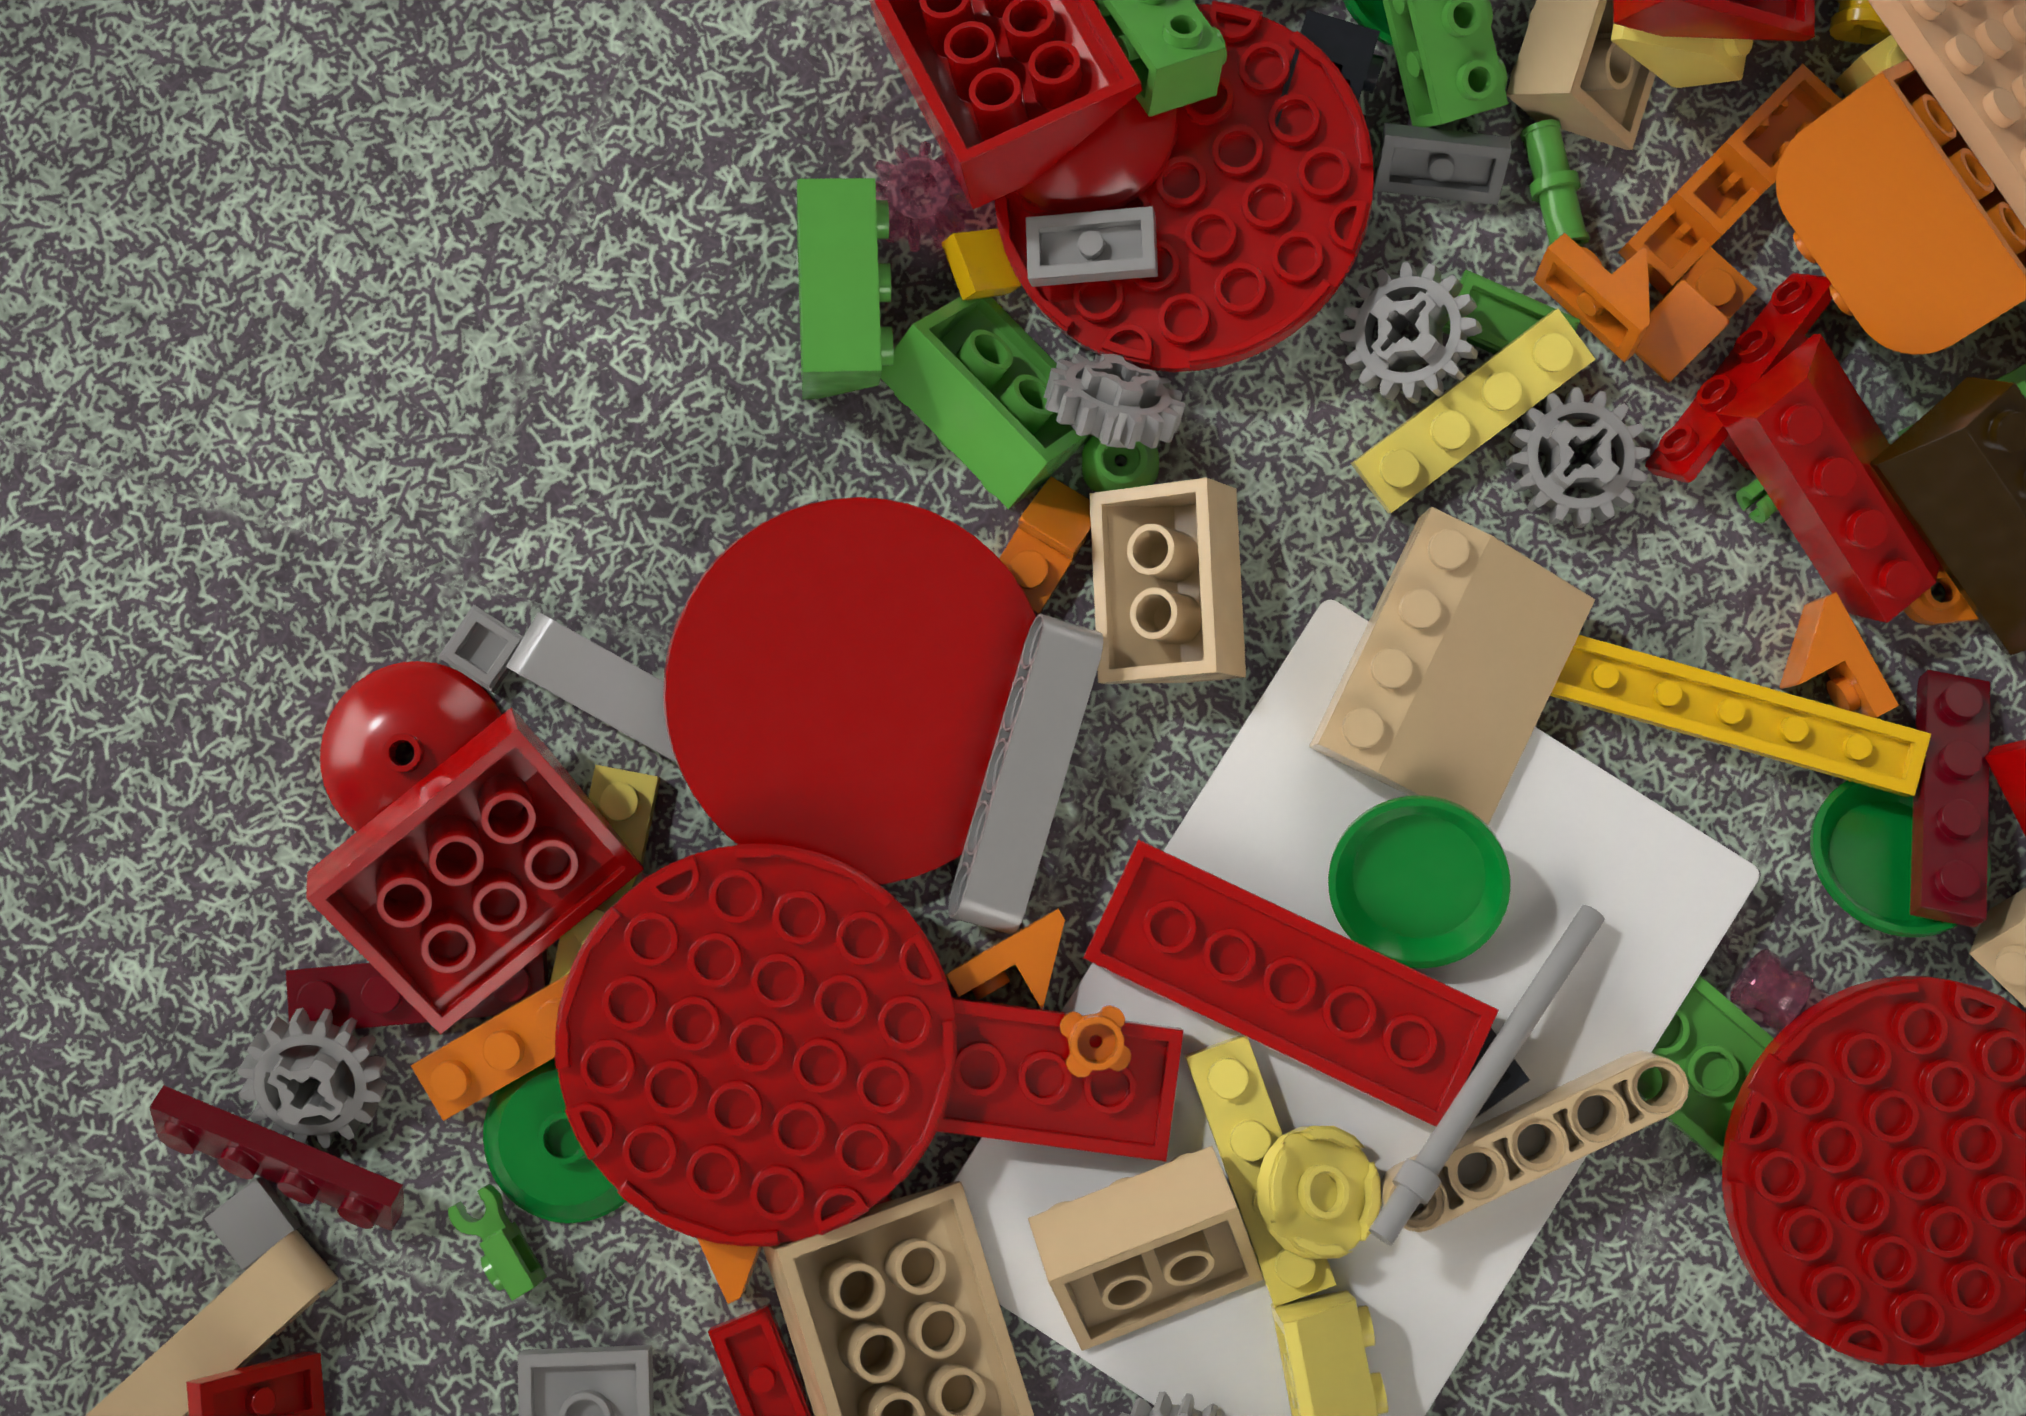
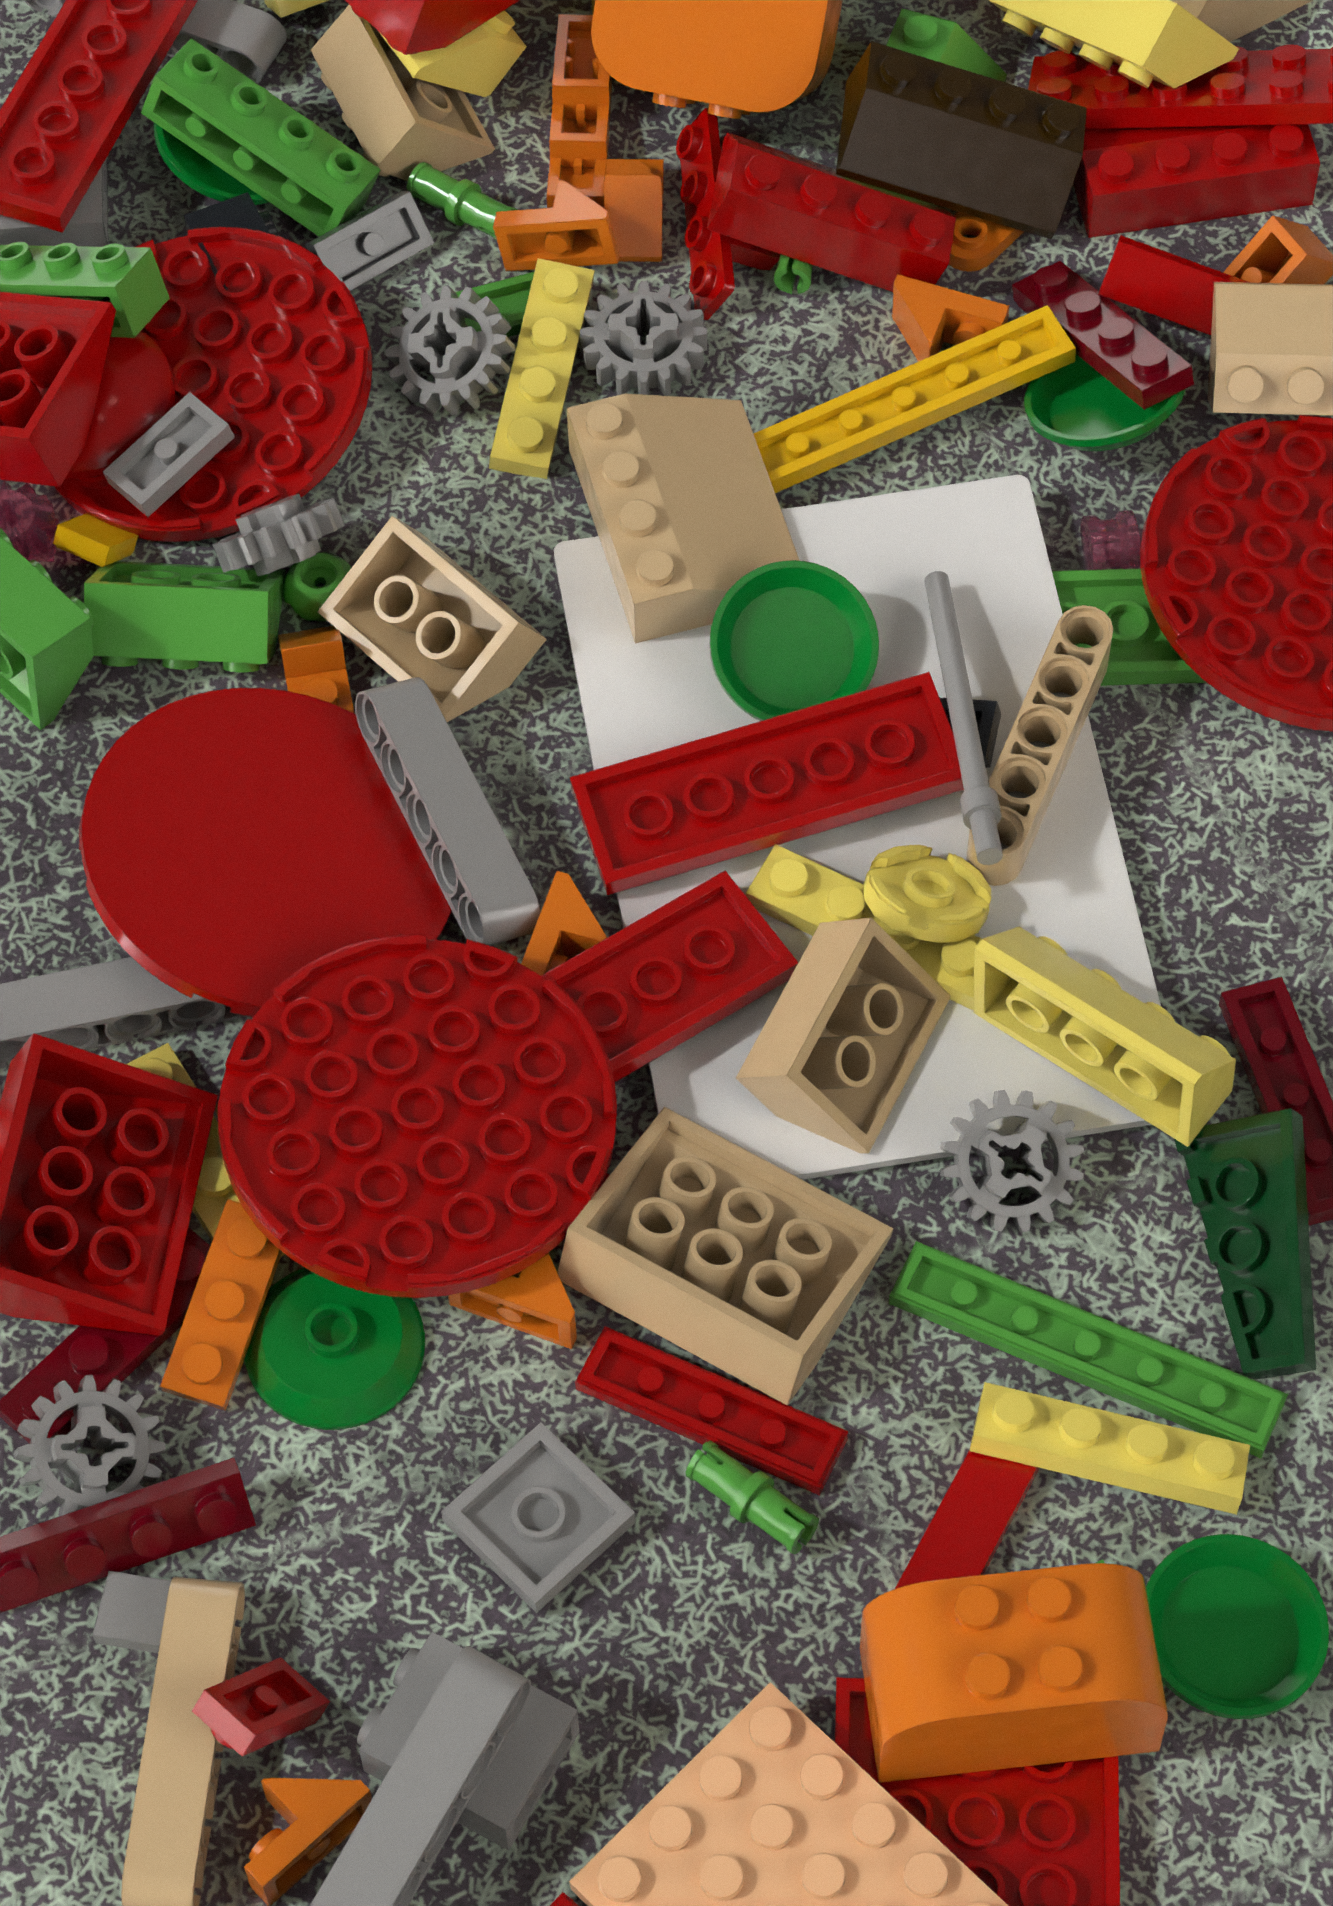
camera: 40 degrees left, 25 degrees down
(507, 1256) = (362, 1449): bright green plate -> none
(1112, 1050) = (672, 900): orange plate -> none

